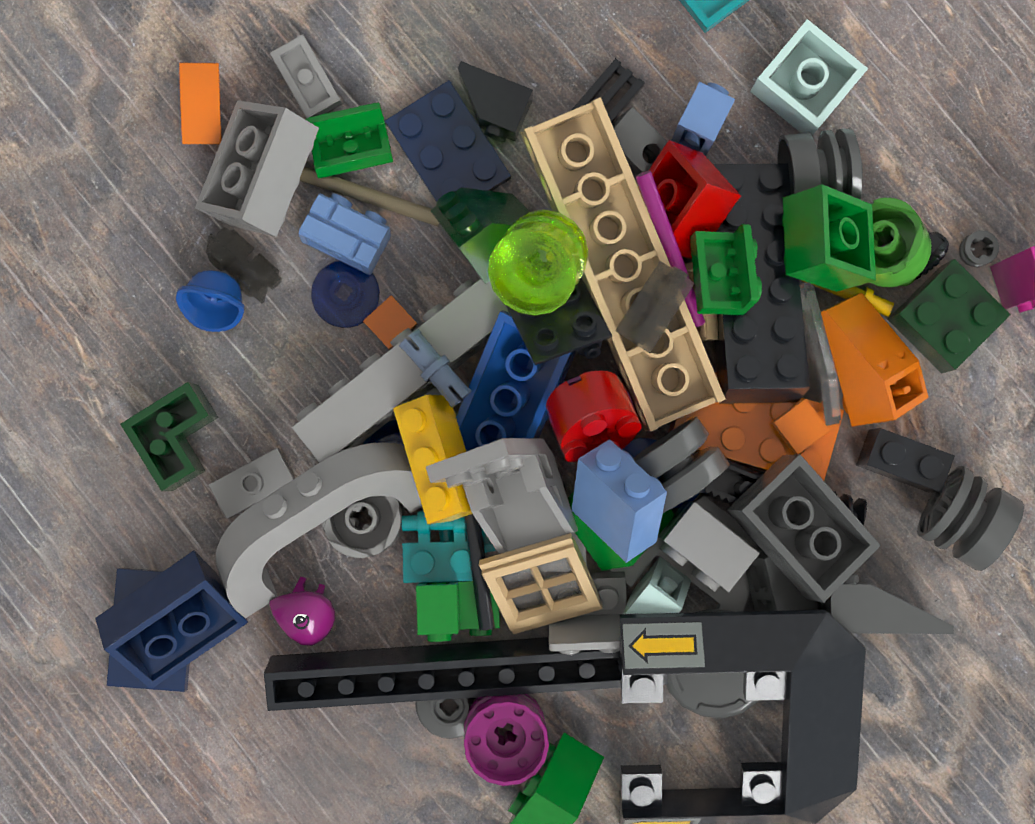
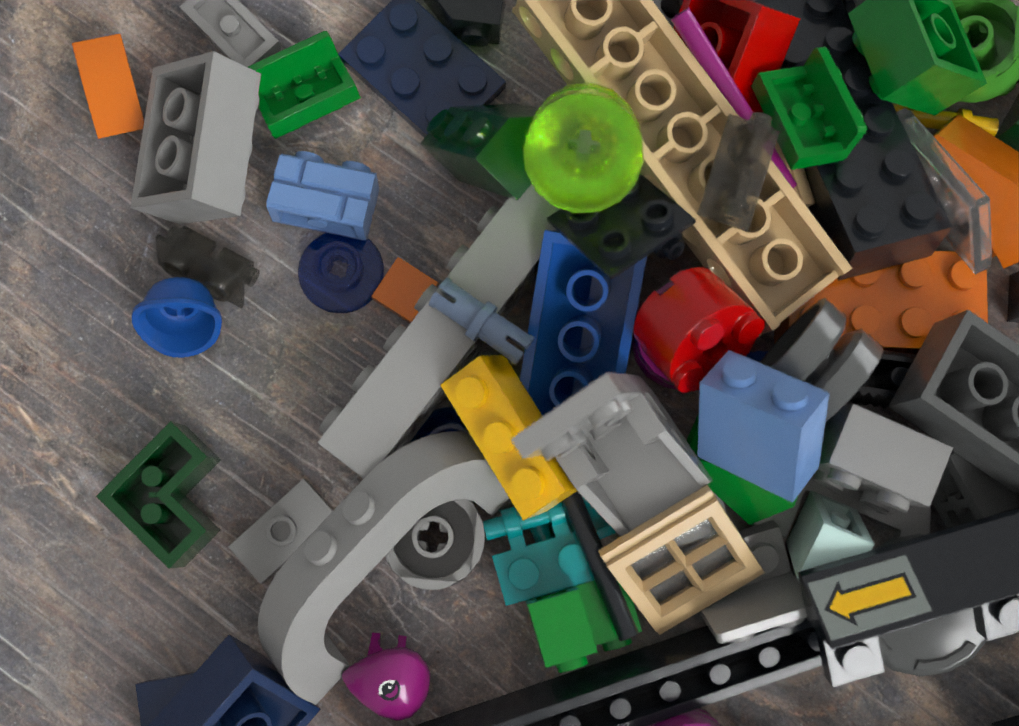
camera: 25 degrees left, 5 degrees down
(370, 196) = (342, 147): dark tan bar -> none
(800, 426) = (945, 283): orange tile -> none

